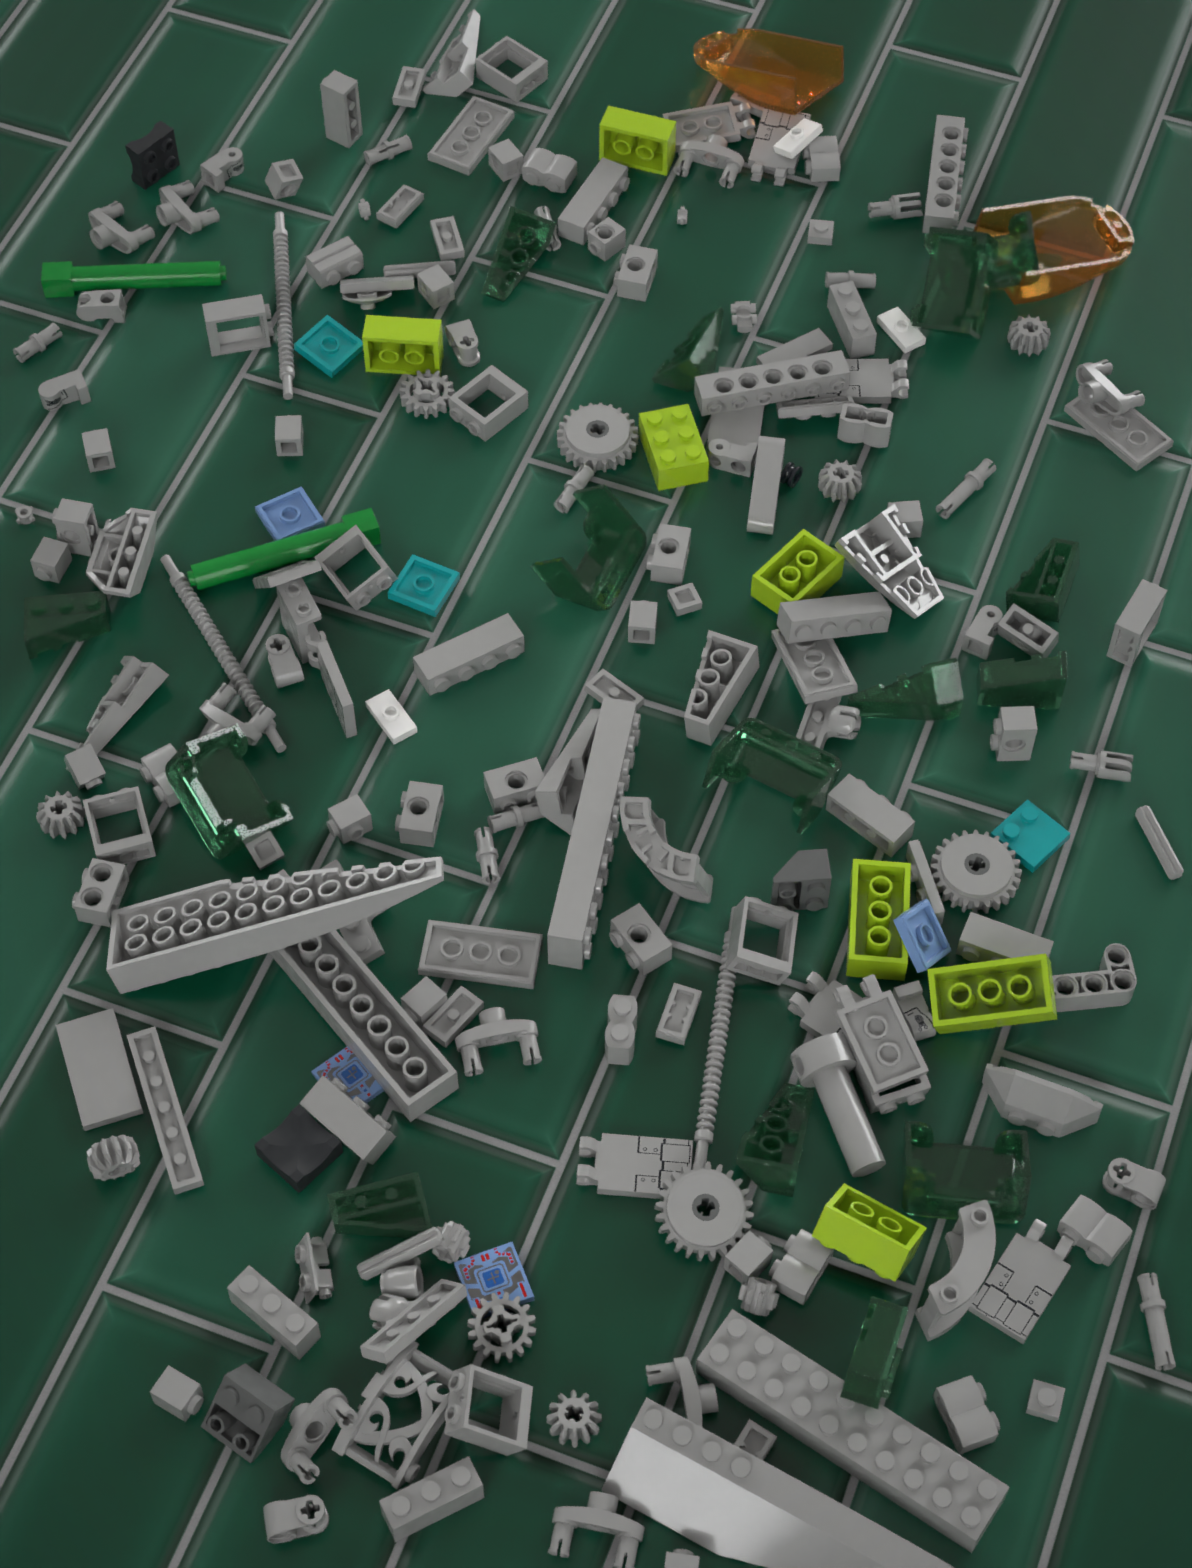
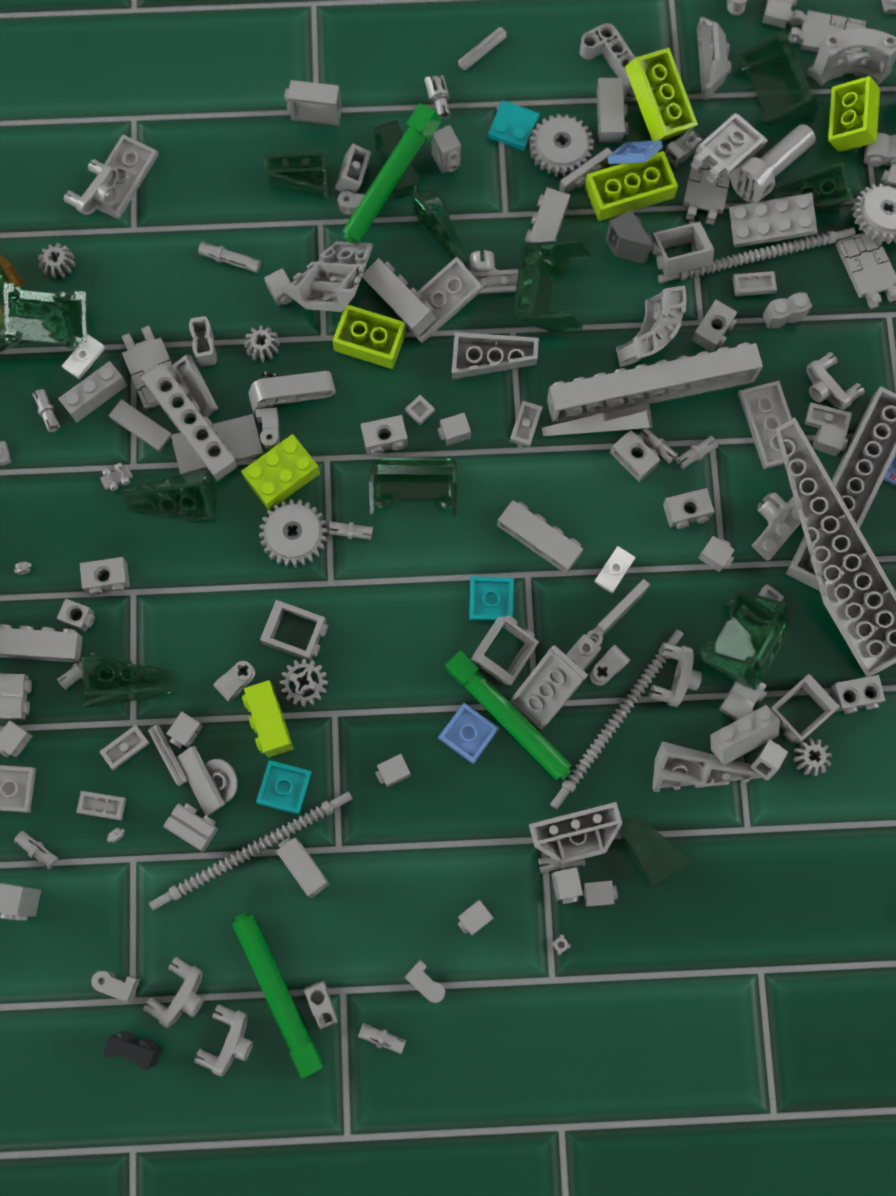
camera: 115 degrees left, 20 degrees up
(125, 748) = (745, 735): none -> light grey brick
(283, 179) = (114, 917): light grey brick -> none
(756, 1068) = (773, 220): none -> light grey plate
(1041, 690) = (420, 128): none -> green brick

